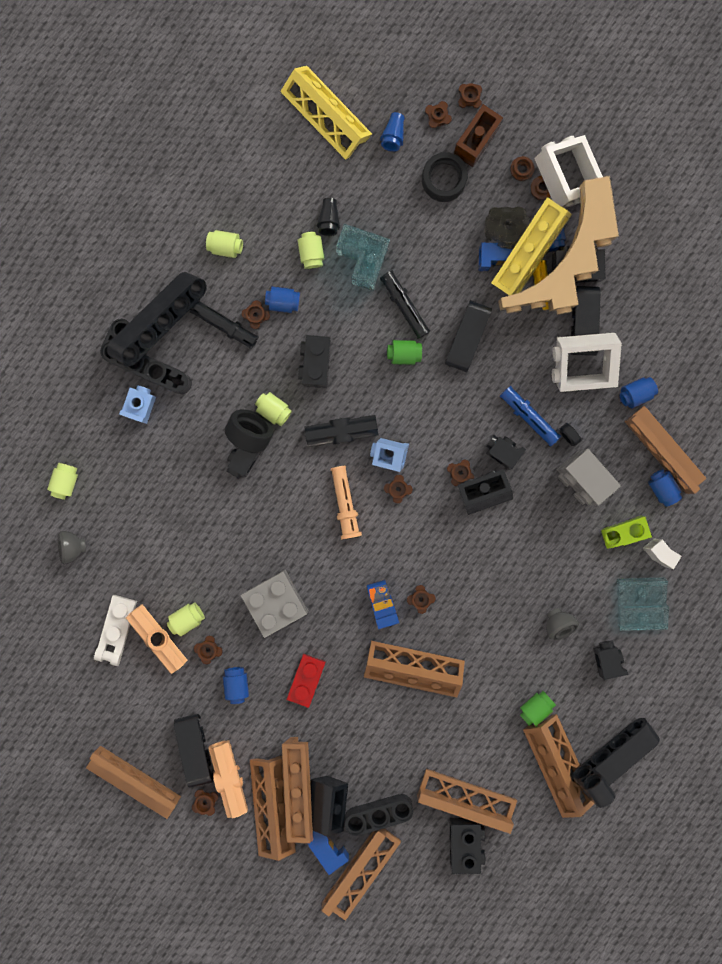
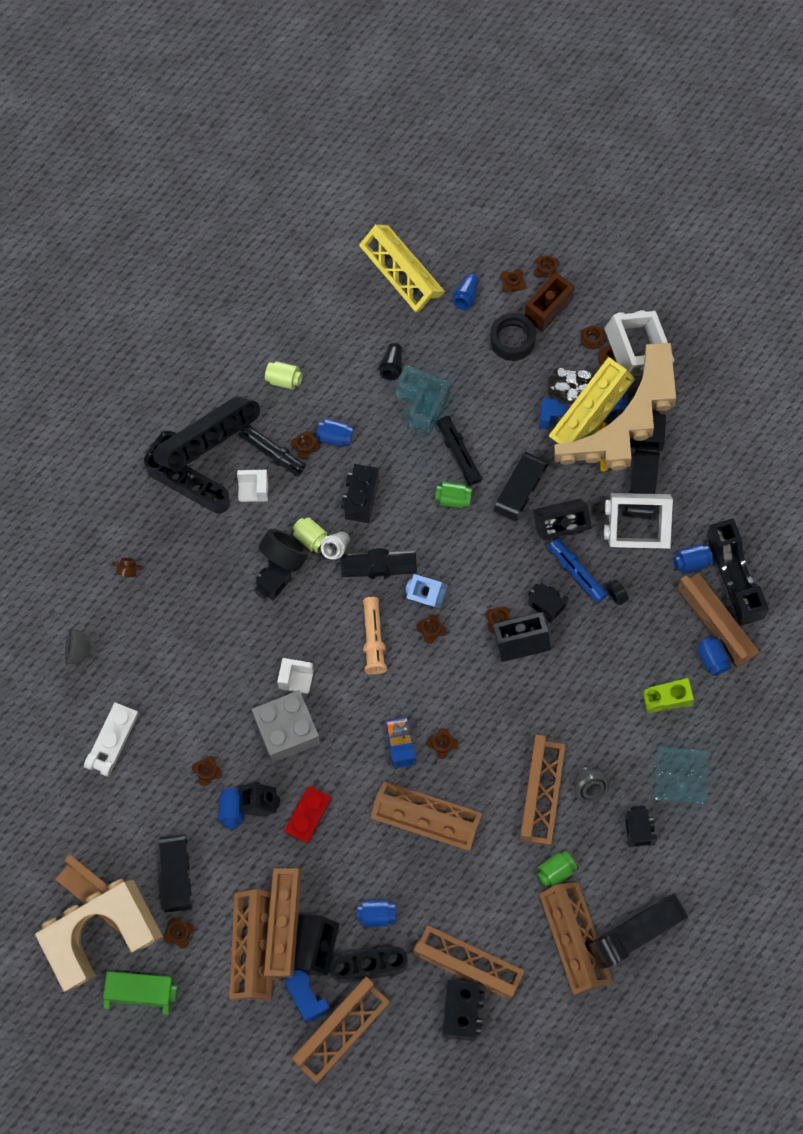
camera: 10 degrees right, 20 degrees down
(62, 481) = (82, 581): yellowish green brick -> none
(102, 461) = (127, 567): none -> reddish brown plate
(144, 410) = (174, 523): light blue brick -> none
(145, 800) = (63, 937): none -> tan arch
(166, 651) = (161, 763): light nougat piece -> none
(177, 861) = (140, 990): none -> bright green brick
(185, 619) = (188, 734): yellowish green brick -> none
(211, 364) = (252, 485): none -> white panel
(227, 779) = (208, 908): light nougat piece -> none
(264, 676) = (263, 798): none -> black brick
(277, 551) = (295, 675): none -> white panel
(297, 420) = (334, 545): none -> white cone
(311, 250) = (370, 390): yellowish green brick -> none
(380, 766) = (377, 913): none -> blue brick
(509, 635) = (532, 791): none -> medium nougat fence
(512, 368) = (562, 519): none -> black brick
(587, 478) = (629, 632): light grey brick -> none
(661, 553) = (704, 720): white piece -> none
(689, 423) = (743, 592): none -> black arch

